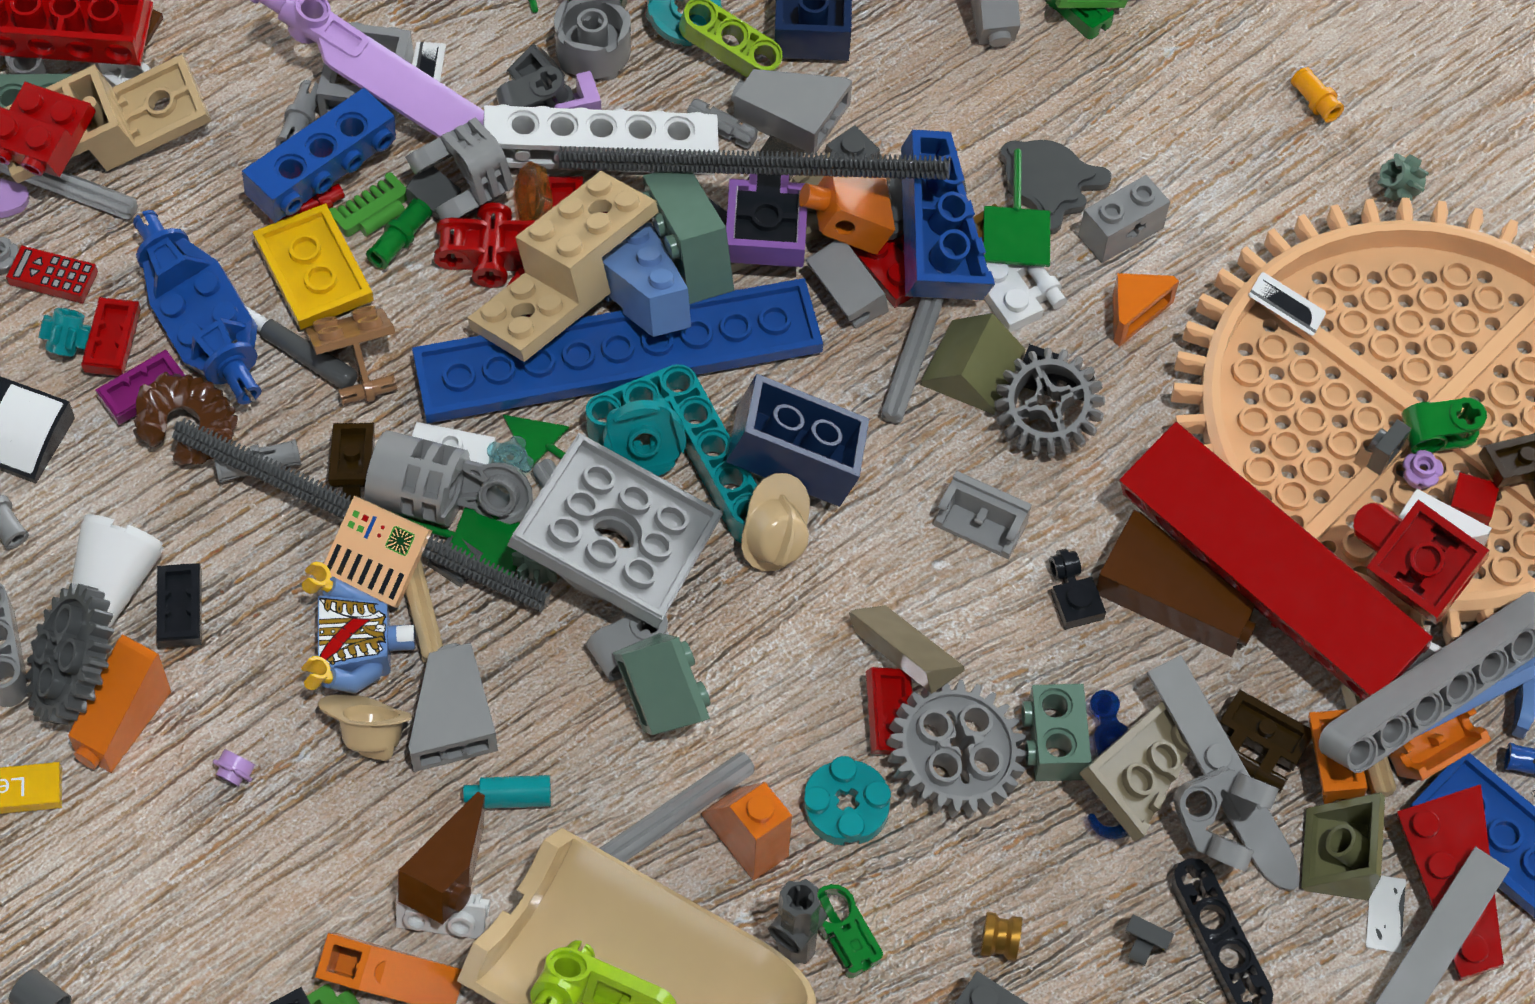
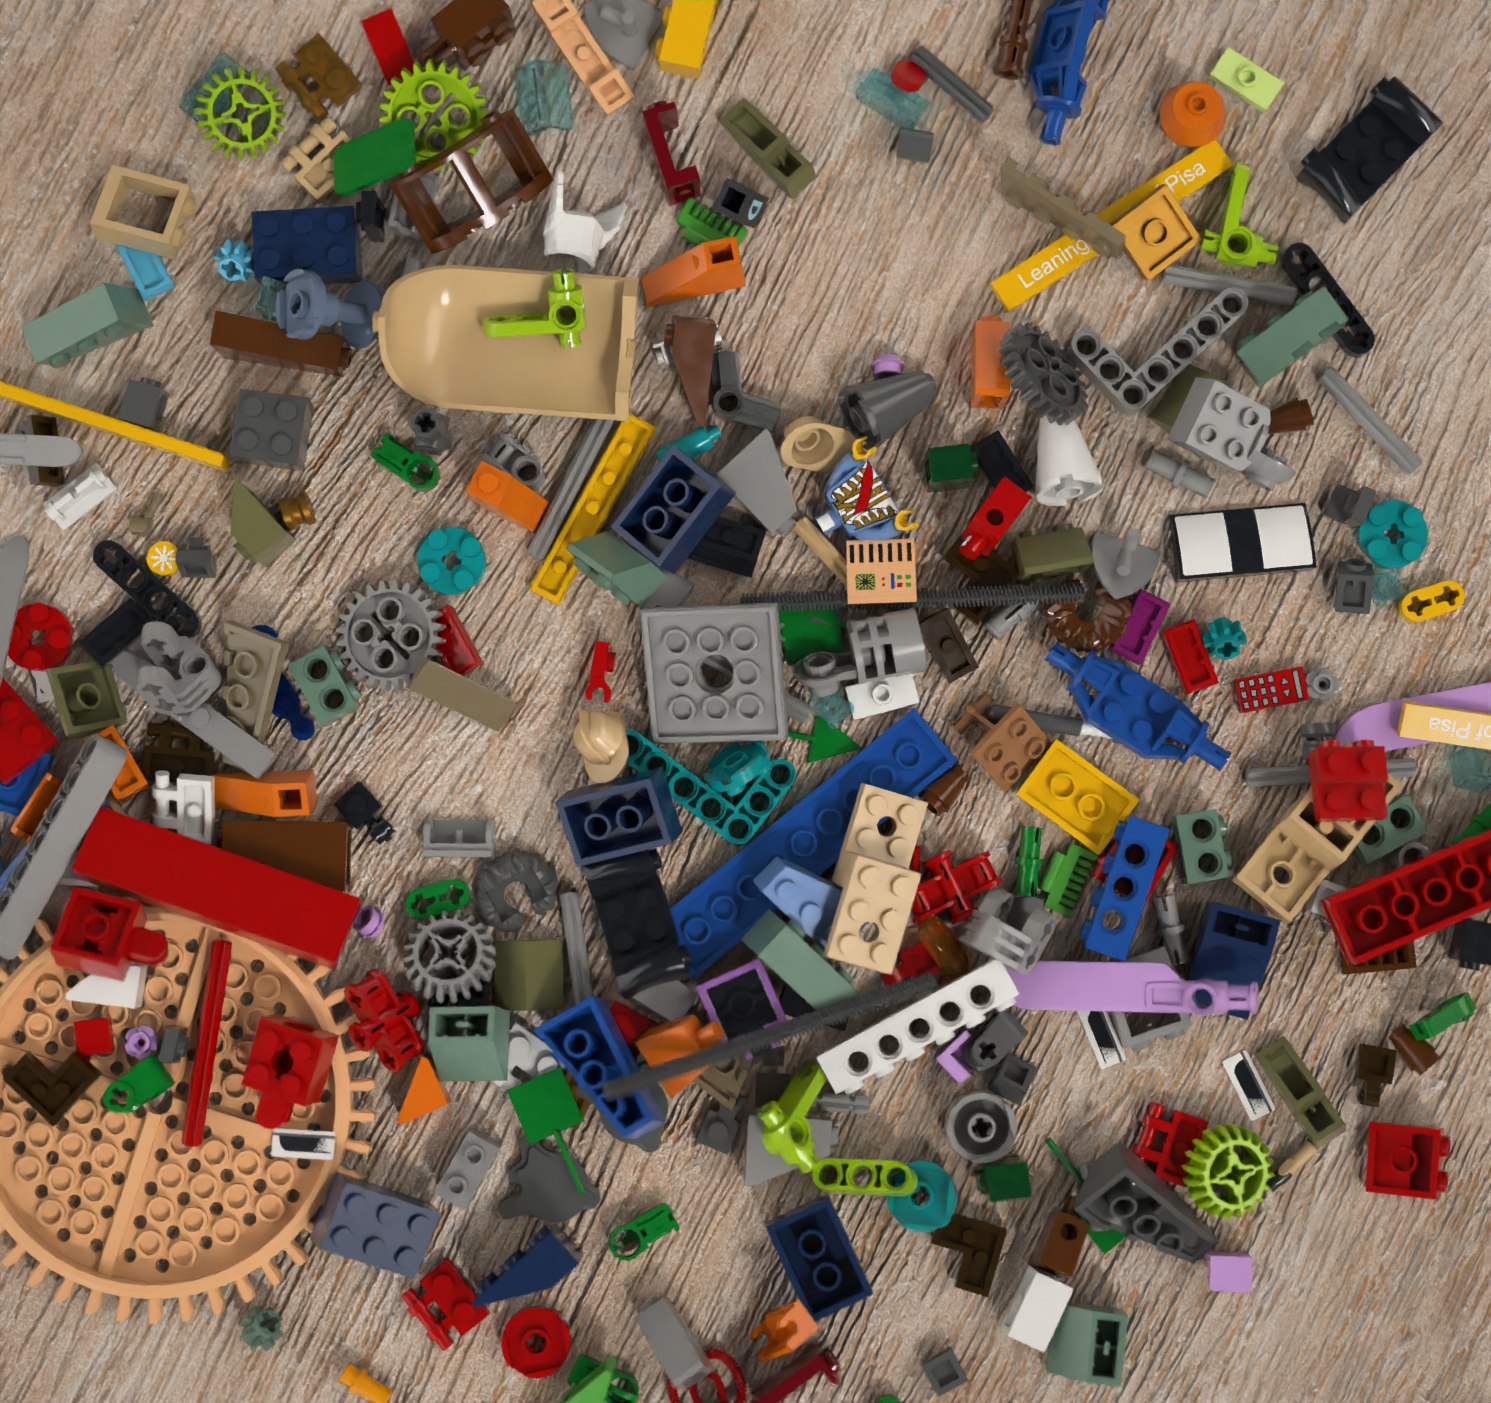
camera: 160 degrees right, 25 degrees up
(38, 205) = (1316, 730): none -> dark grey wheel
(118, 448) = (1123, 564): none -> light grey shield
(185, 483) = (1051, 554): none -> olive slope
(220, 161) = (1192, 848): none -> sand green brick
(223, 538) = (993, 519): none -> red torso
(236, 616) = (950, 467): none -> dark green brick
(254, 68) = (1231, 948): none -> dark blue slope
(261, 719) = (885, 405): none -> dark grey cone
(266, 514) = (983, 571): none -> dark brown plate
(417, 796) = (727, 383): none -> dark grey piece
(444, 327) = (944, 790): none -> reddish brown cone
(527, 669) = (730, 547): none -> black plate
(564, 713) = (673, 509): none -> dark blue brick
(662, 776) = (593, 506): none -> yellow tile
(720, 874) = (512, 459): none -> light grey piece
(734, 612) = (602, 663): none -> red plate
(781, 99) = (785, 1124): none -> lime piece
(835, 331) = (637, 921): none -> black piece
(941, 463) = (509, 869): none -> dark grey piece
(967, 101) = (647, 1227): none -> green piece
(1034, 474) = (436, 890): none -> green beam
(1055, 923) = (256, 529): none -> olive slope
(1065, 317) = (470, 1042): none -> sand green slope
(1105, 102) = (539, 1268): none -> dark blue slope
(1110, 477) = (369, 922): none -> lavender plate
(1123, 76) = (525, 1358): none -> red plate
(1148, 374) = (384, 1020): none -> red axle
(1160, 633) = (272, 795): none -> orange slope
(1185, 964) = (162, 558): none -> yellow tile
(1193, 132) = (453, 1296): none -> red plate
(1244, 200) = (375, 1225): none -> dark blue brick
(1264, 678) = (194, 805): none -> white plate
(1270, 365) = (287, 1067): none -> red brick
(1279, 903) = (115, 633): none -> black plate
(1351, 436) = (206, 1043): none -> red axle
(1355, 930) = (57, 640): none -> red plate

